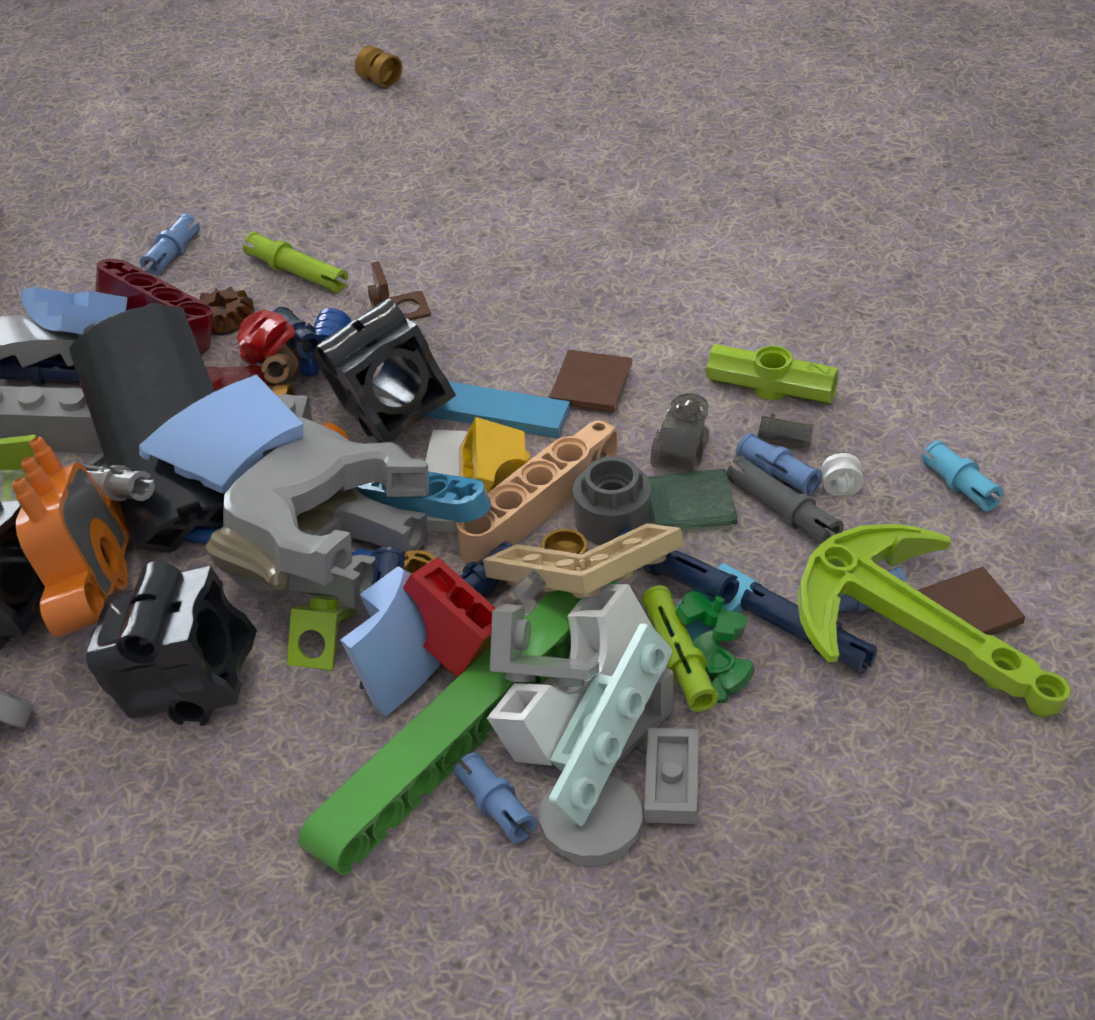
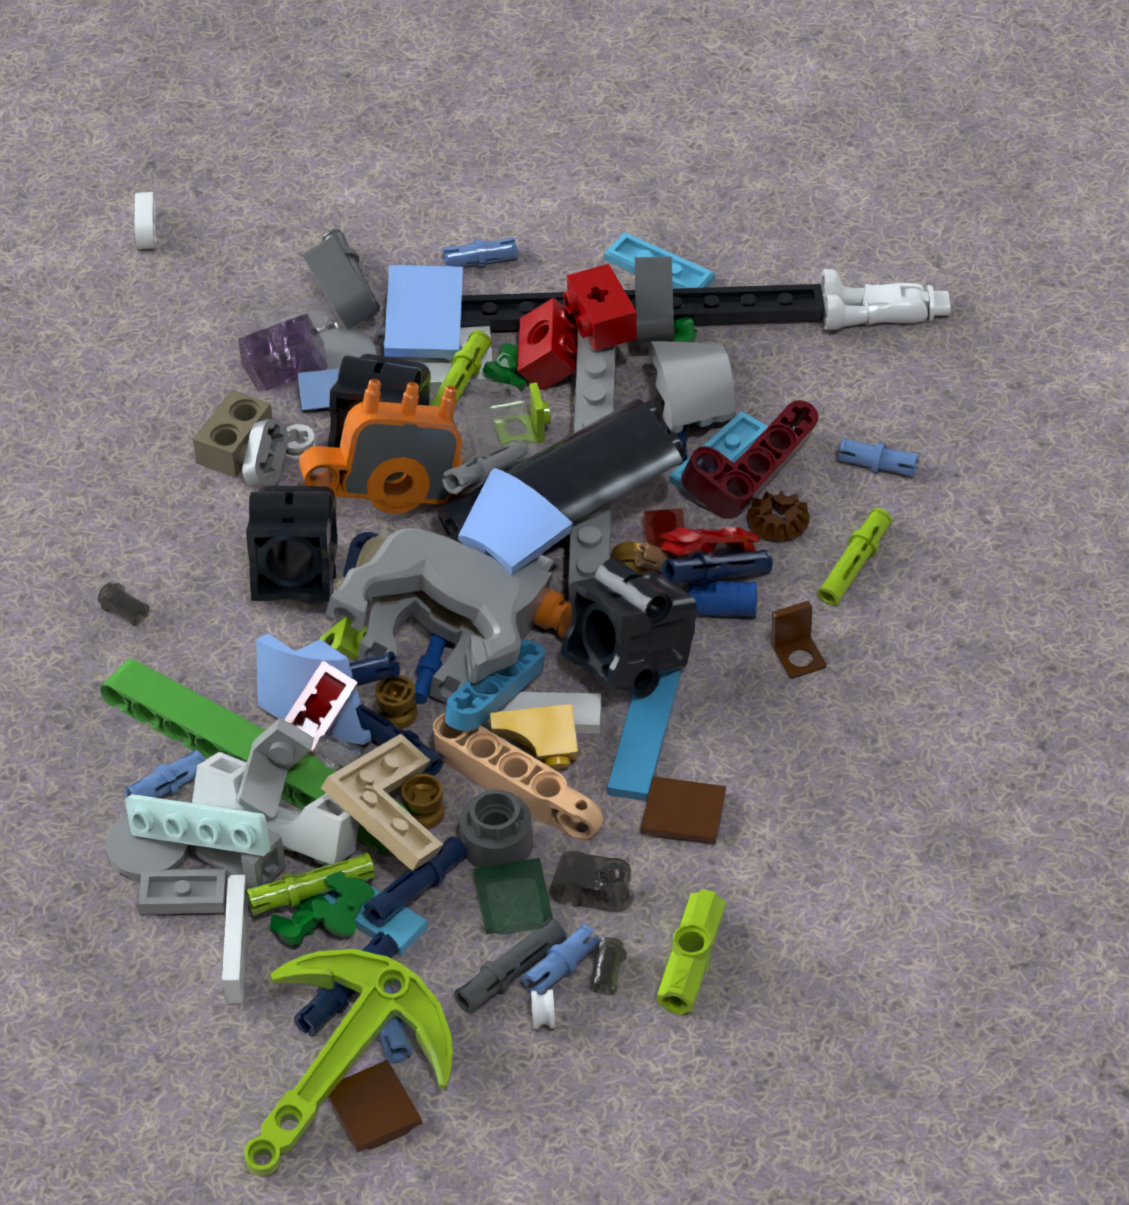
camera: 85 degrees right, 5 degrees up
(70, 311) = (721, 405): light blue slope -> none
(182, 857) = (115, 598): none -> clear smoke pin
(752, 718) = (235, 939): none -> white tile
(962, 475) = (548, 1109): medium azure pin -> none

